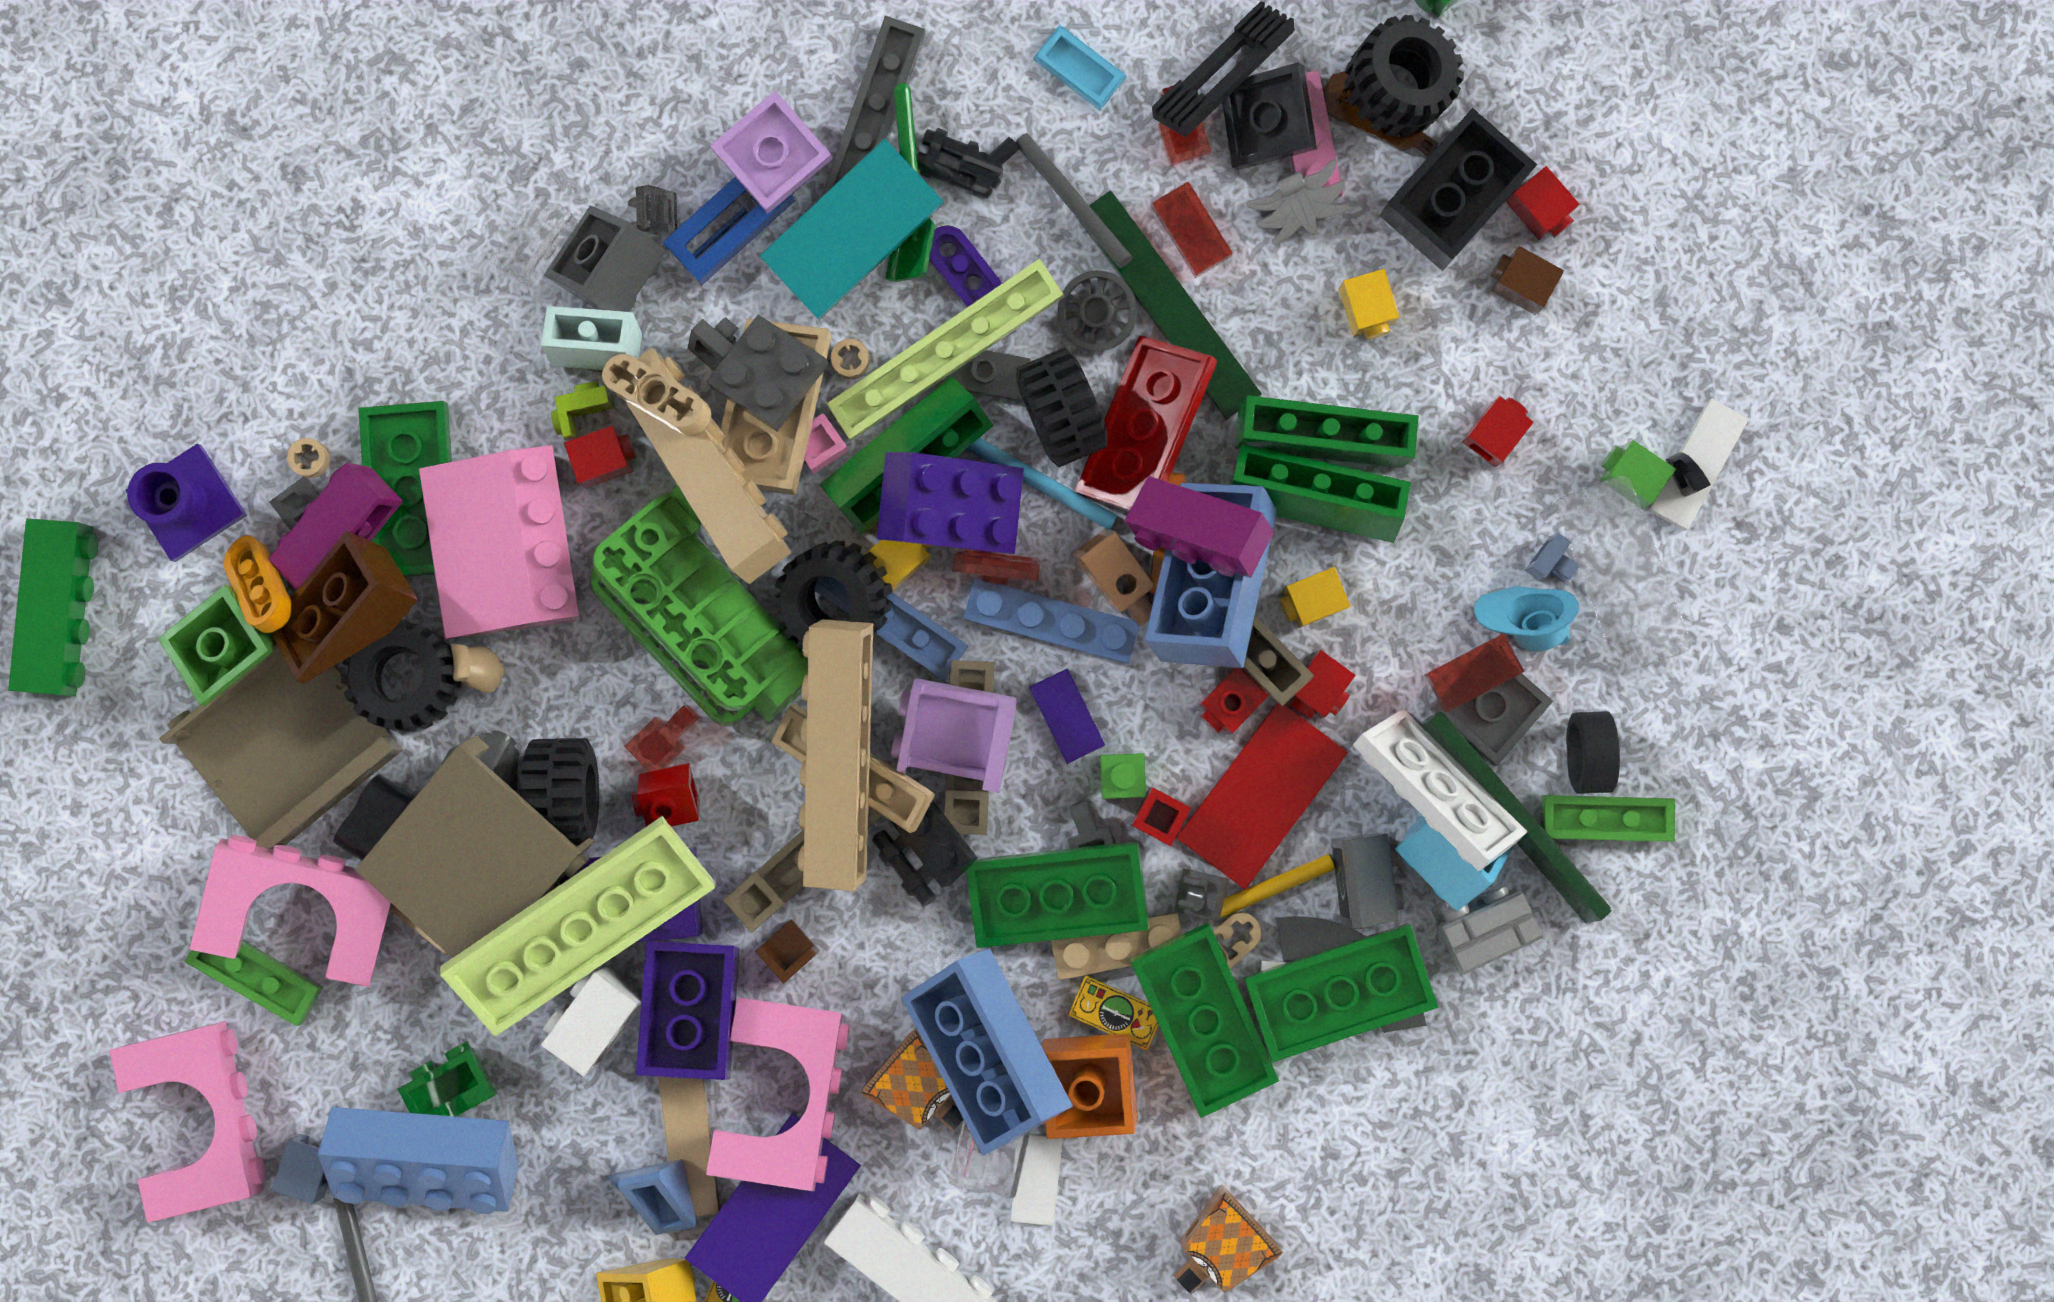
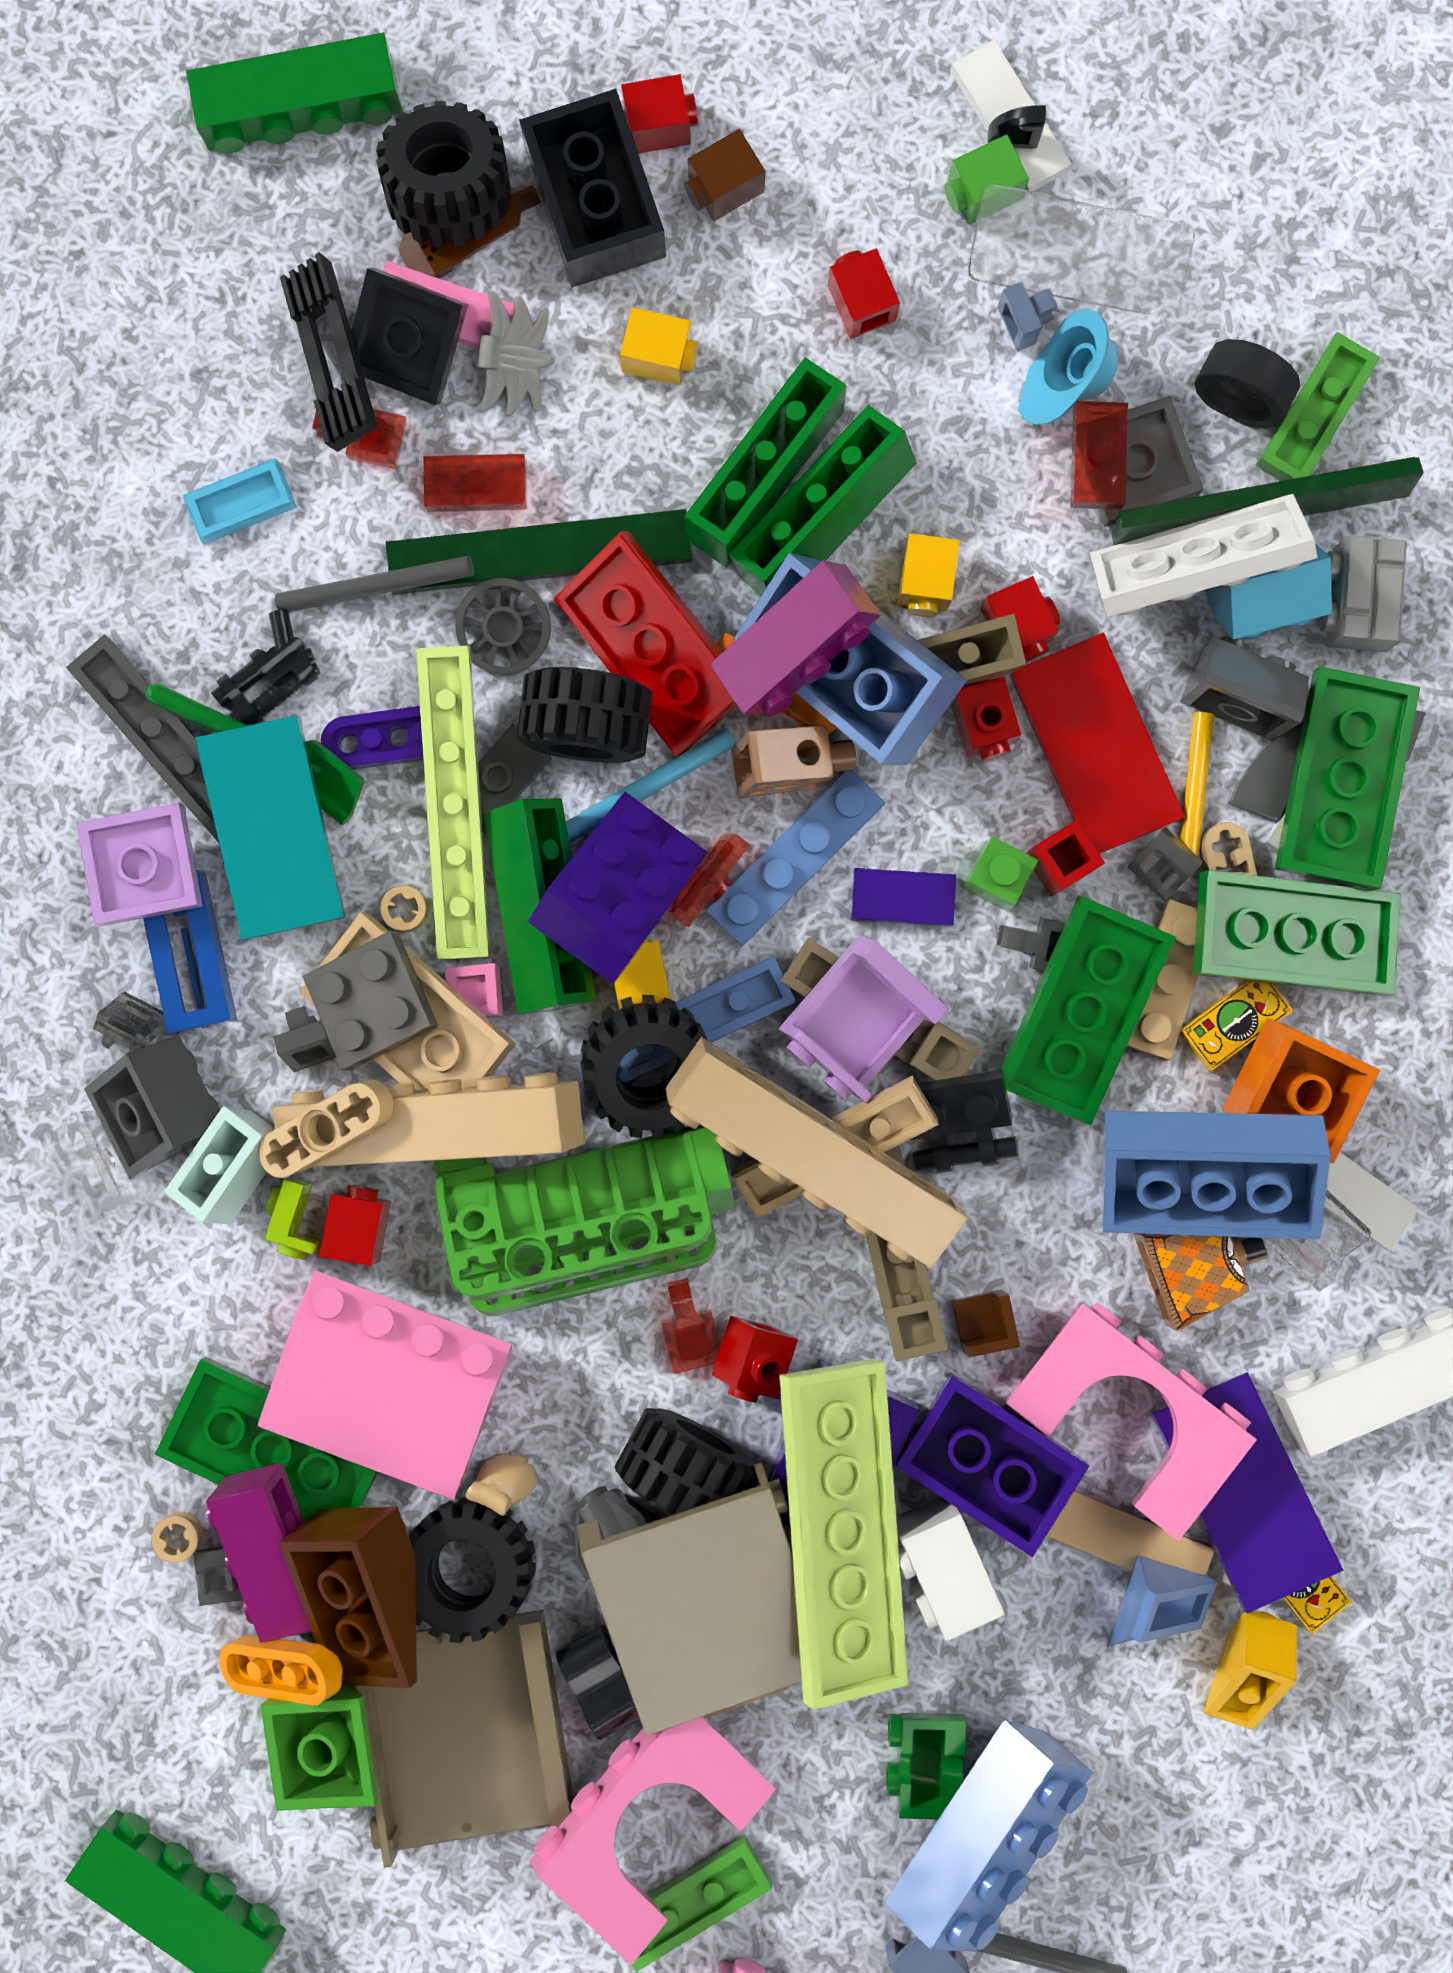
camera: 60 degrees left, 0 degrees up
(183, 501) = (145, 1698): dark purple plant -> none

